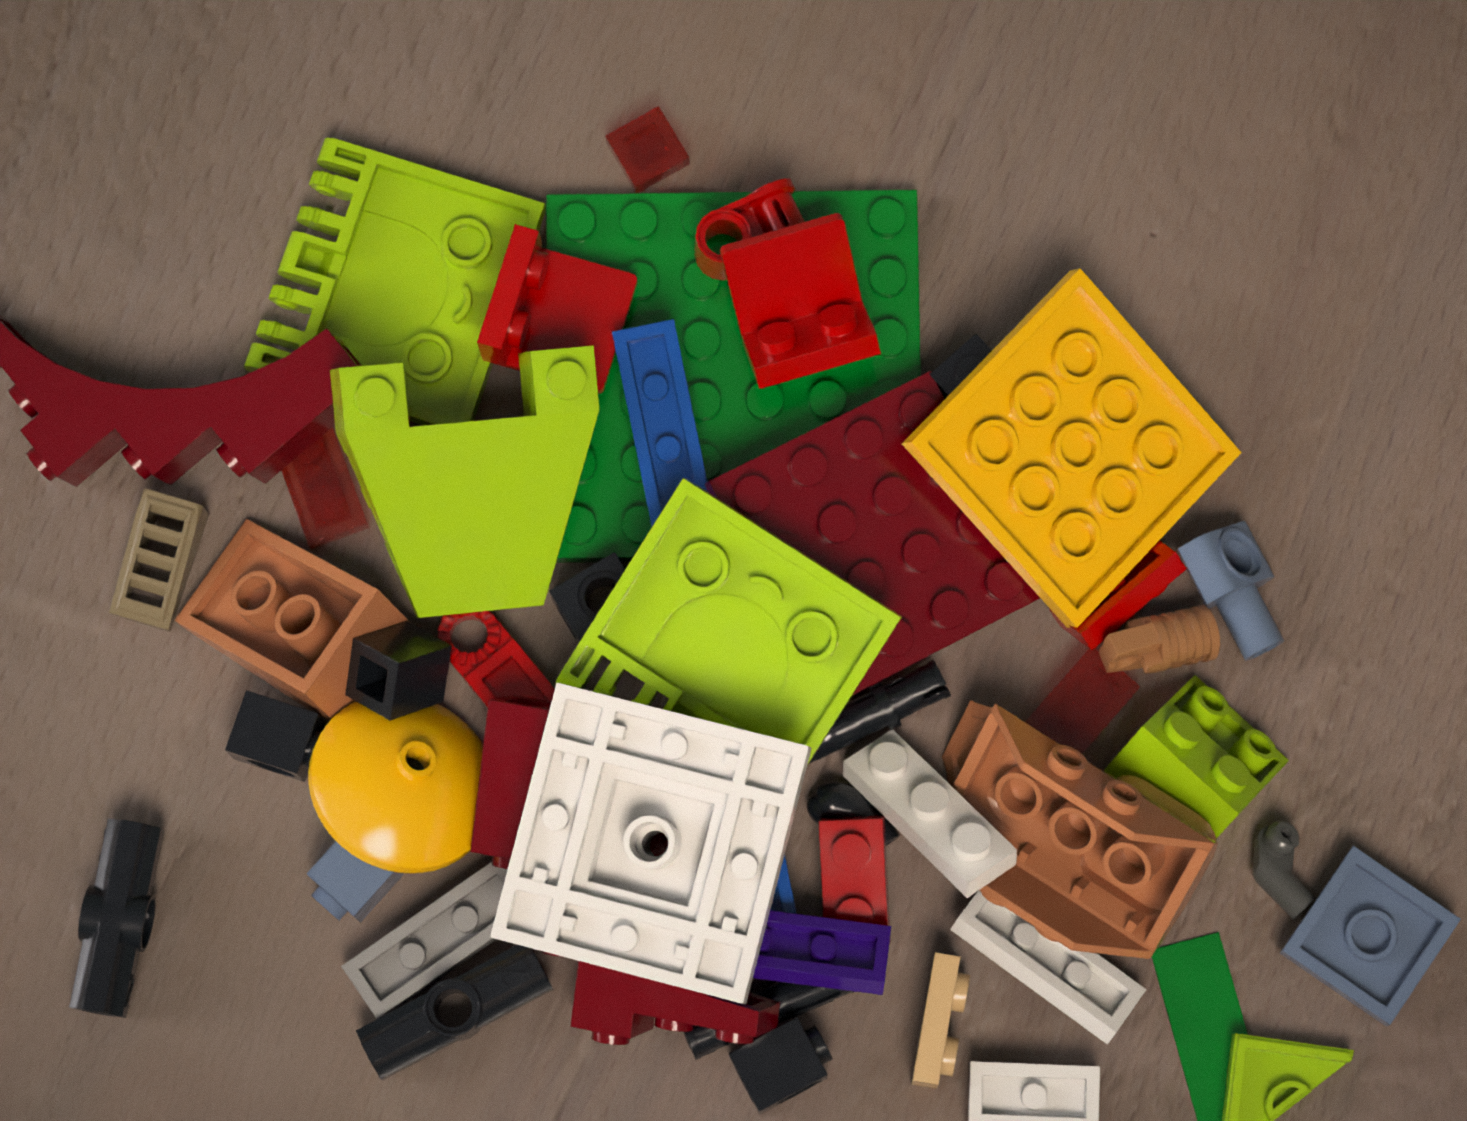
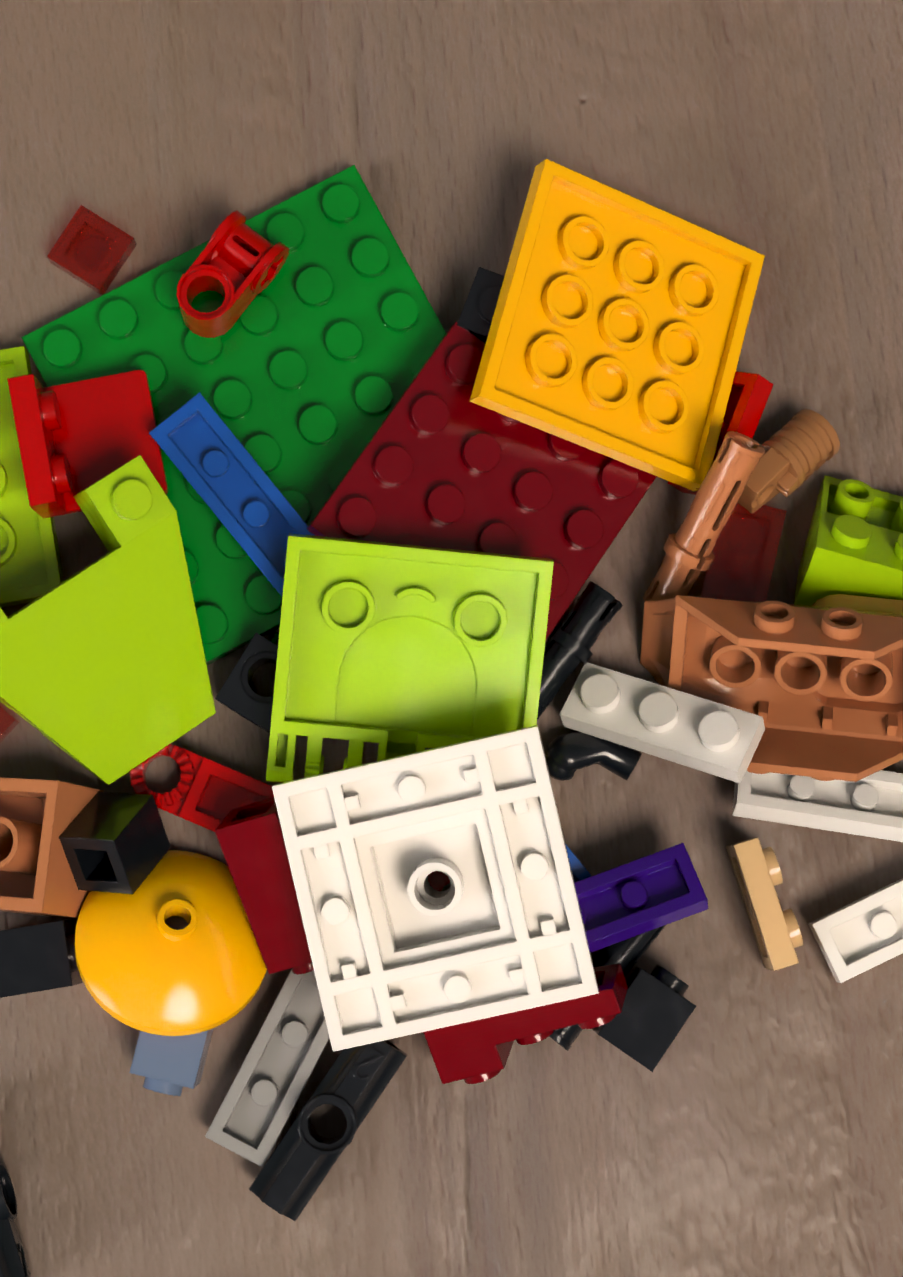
camera: 35 degrees left, 5 degrees up
(798, 300) = (304, 318): red bracket -> none
(854, 869) = (620, 807): red plate -> none
(1034, 675) = (692, 546): none -> nougat pin
(1226, 573) = (809, 373): sand blue piece -> none

